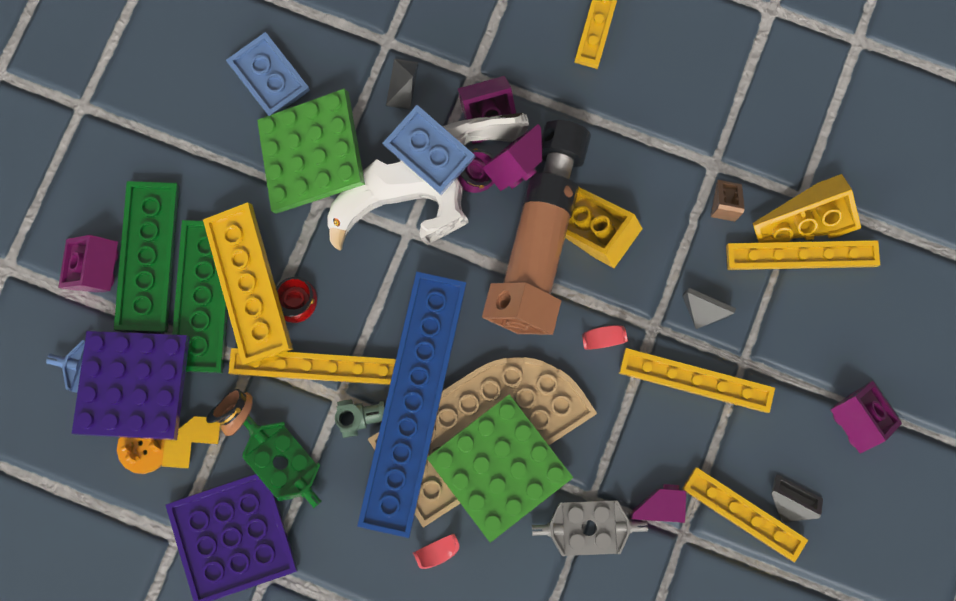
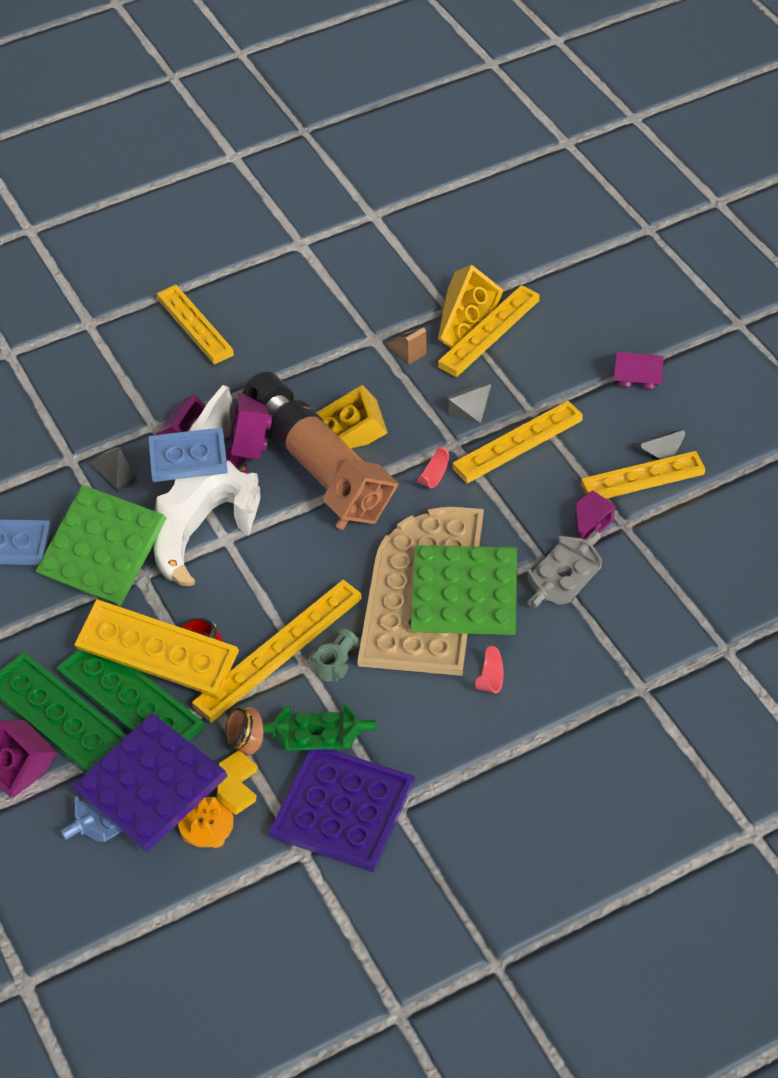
camera: 45 degrees left, 30 degrees down
(412, 405) = (363, 610): blue plate -> none

